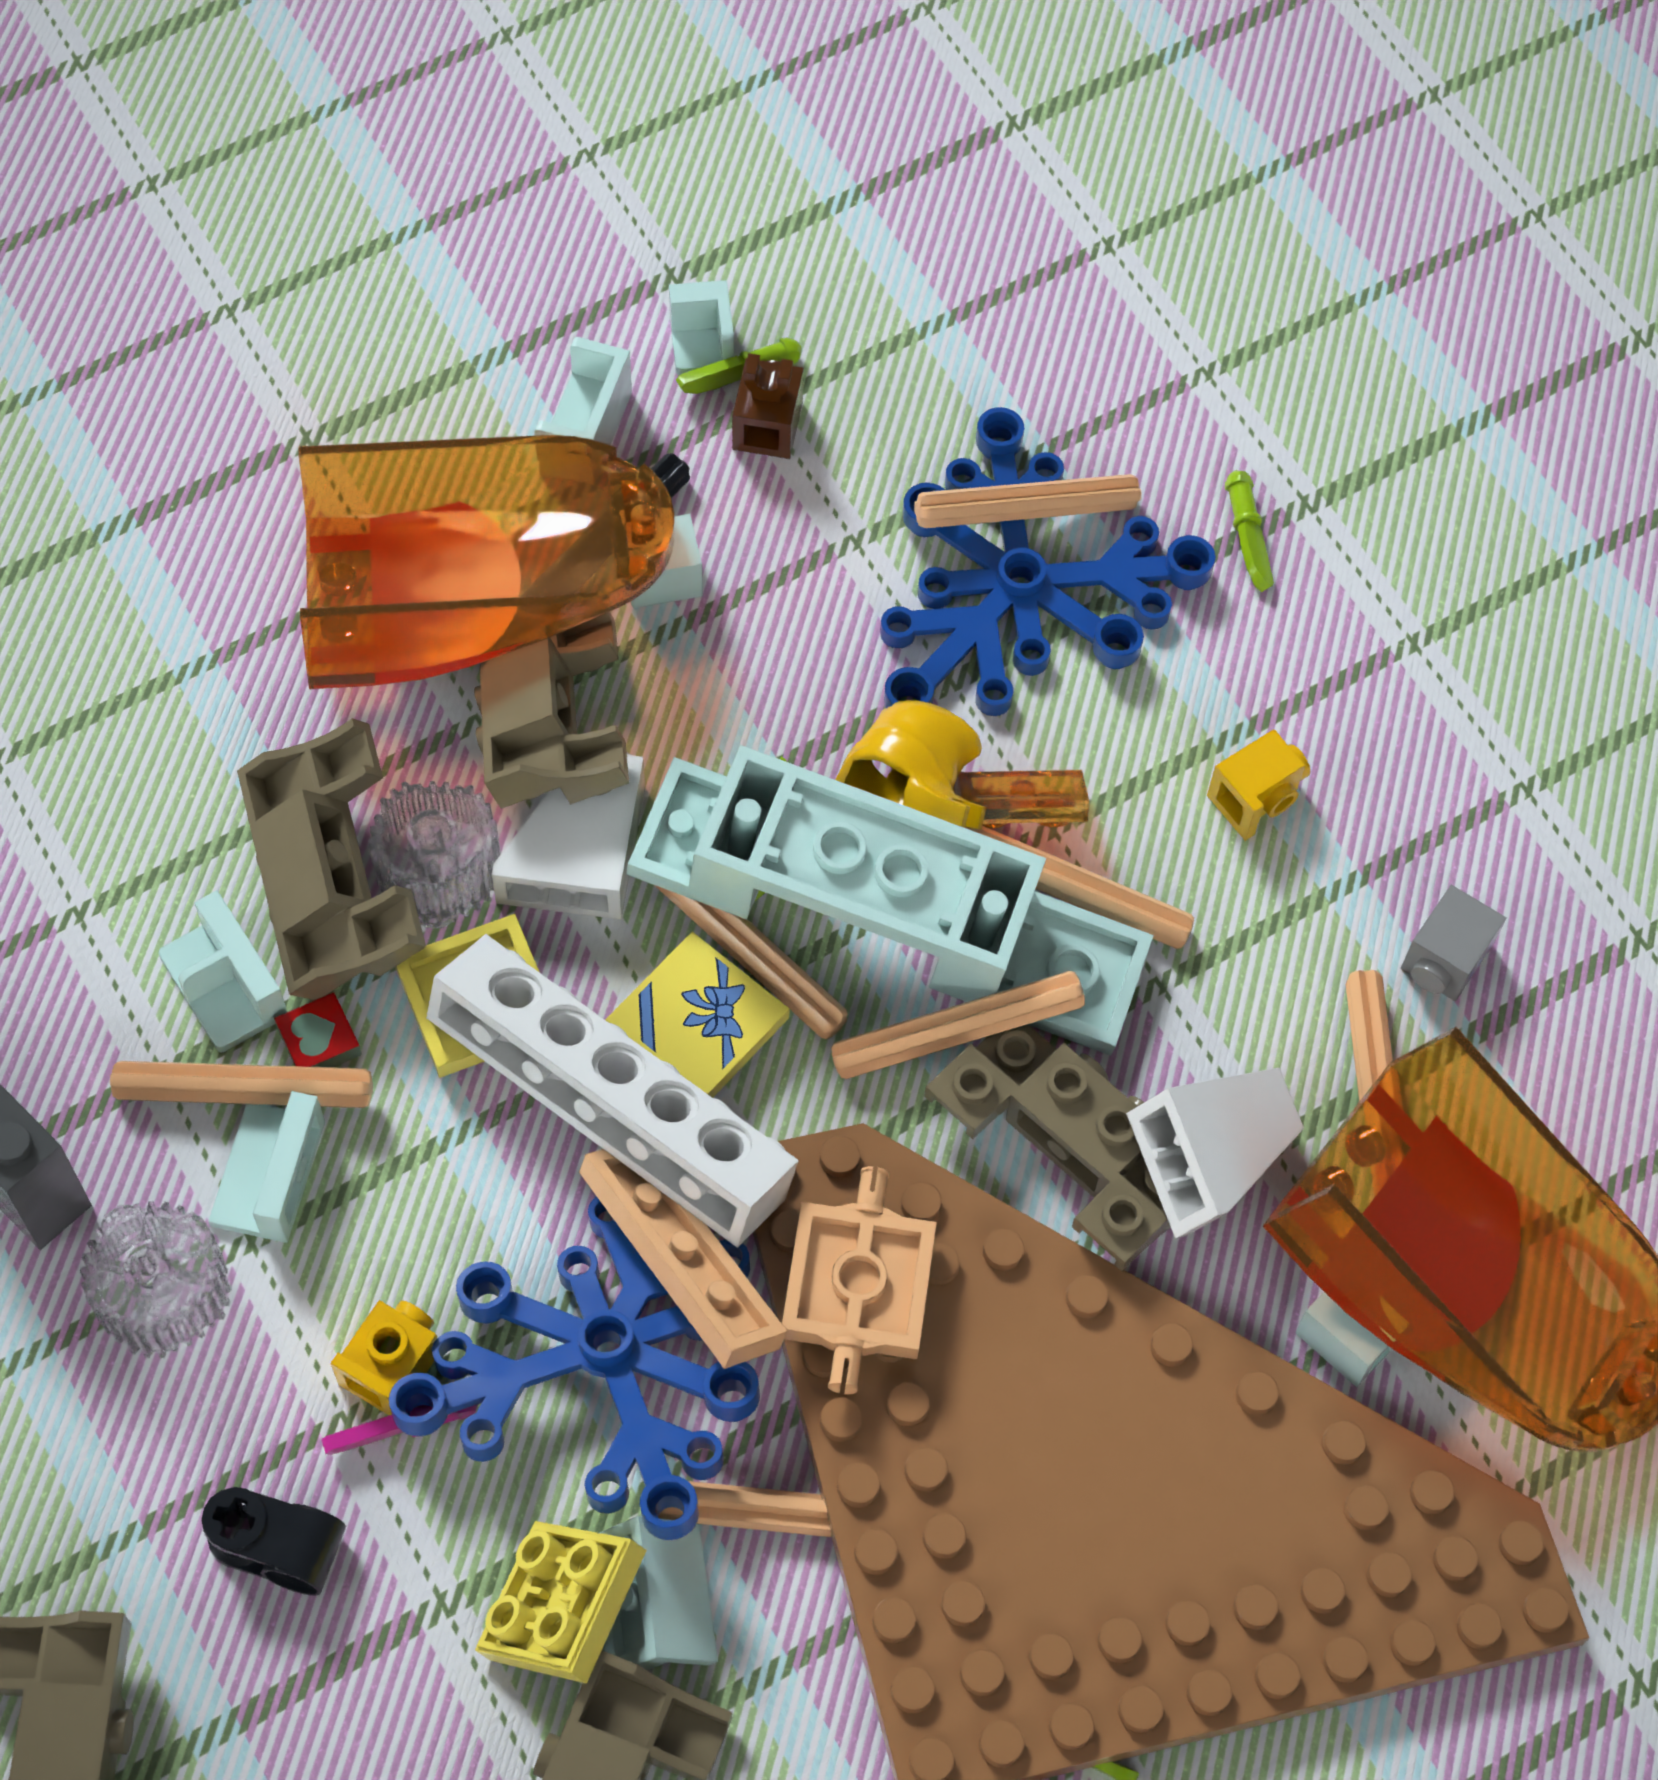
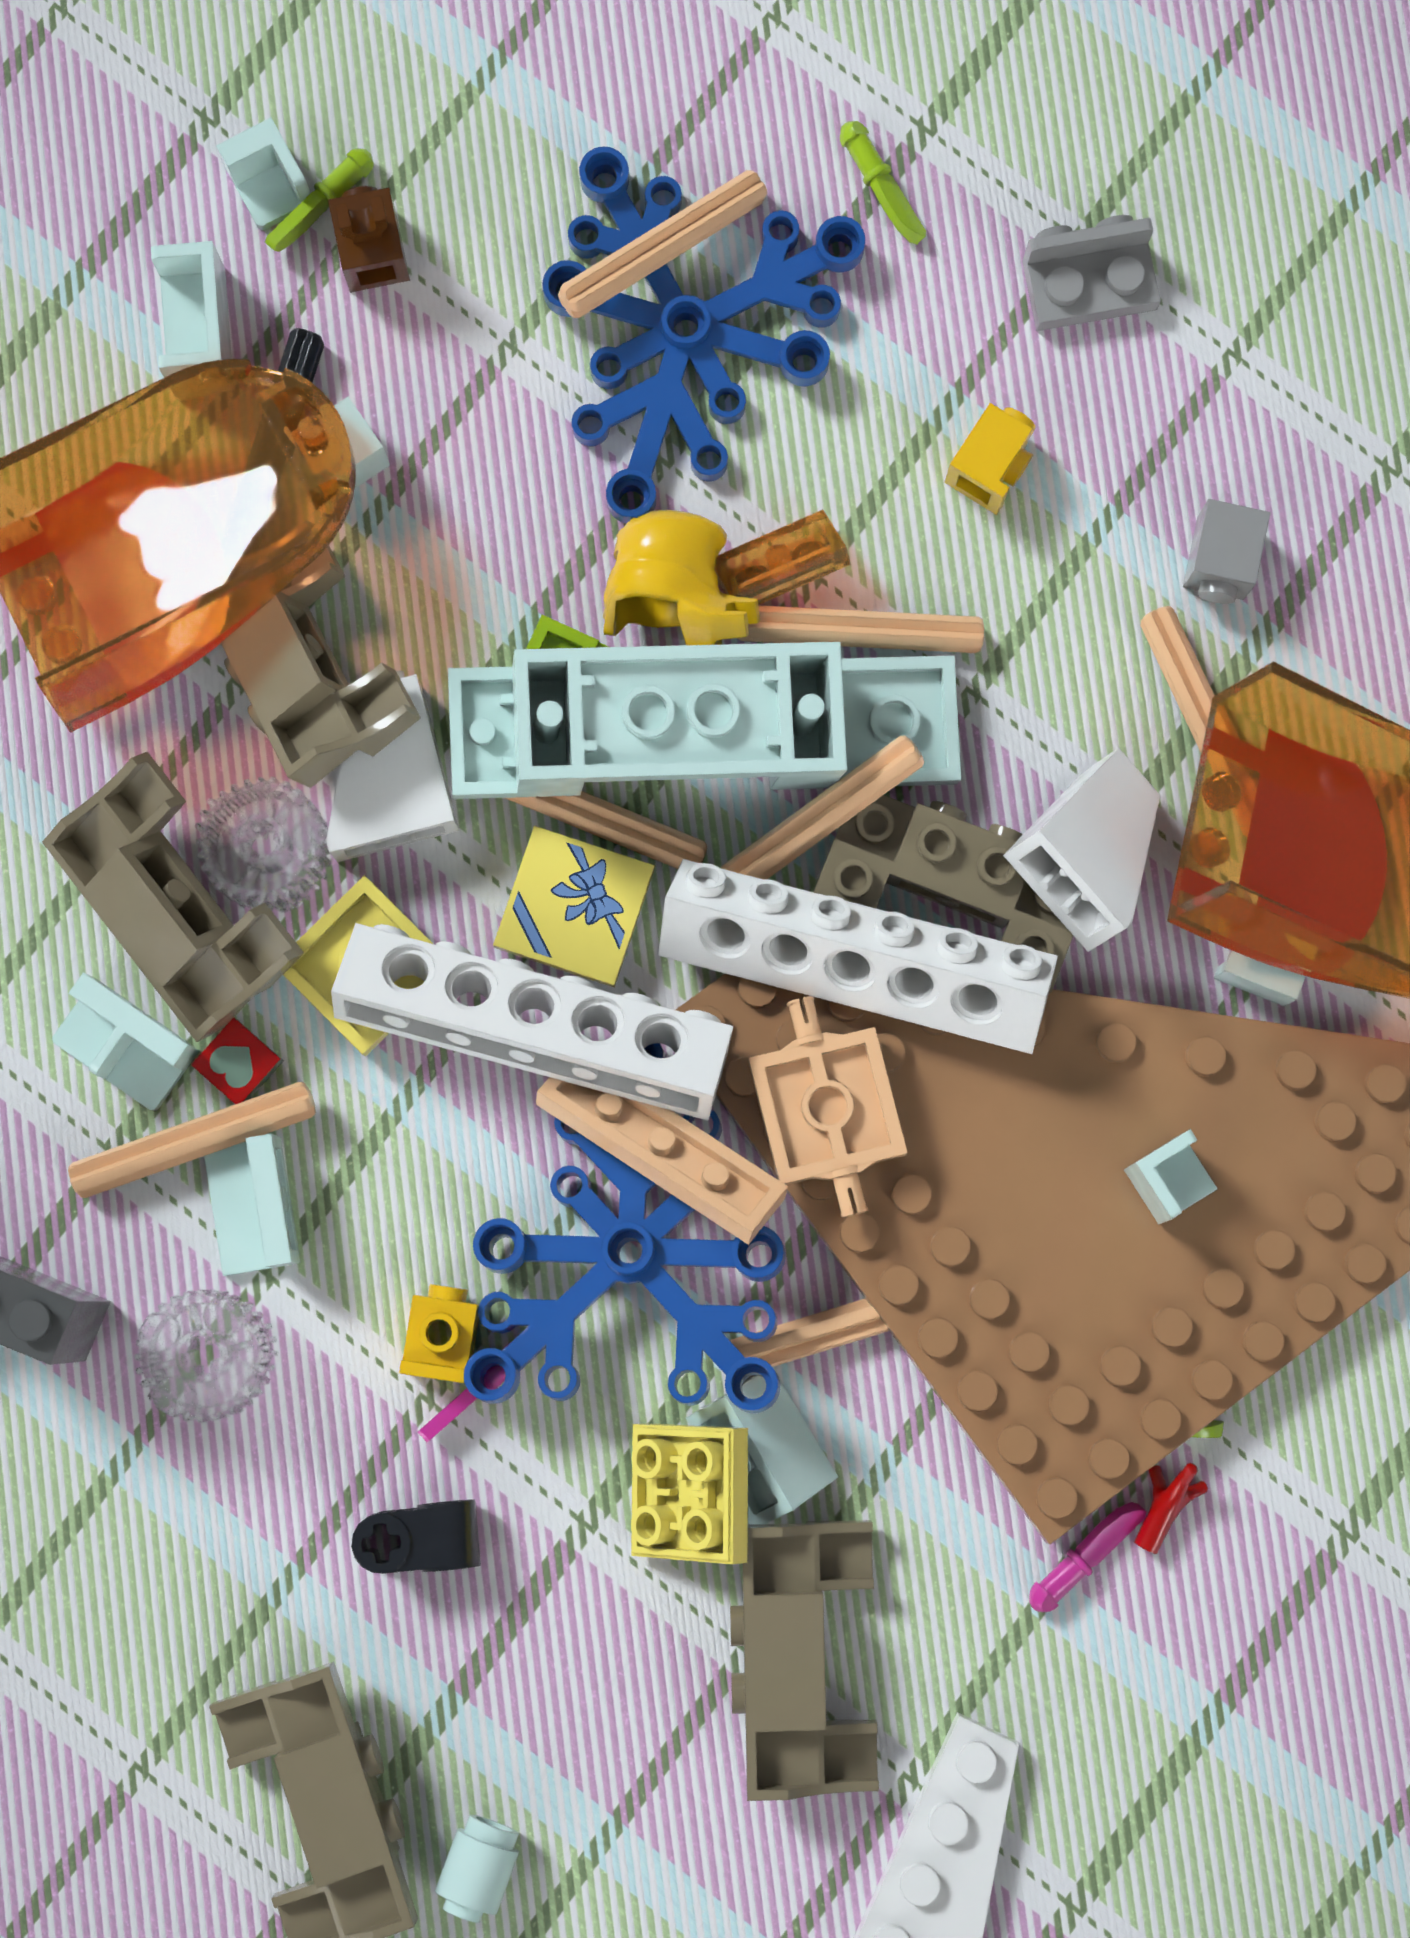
camera: 20 degrees left, 20 degrees up
(962, 1187) = (856, 955): none -> white brick
(1175, 1481) = (1171, 1178): none -> light aqua panel
(1414, 667) = (1091, 272): none -> light grey bracket

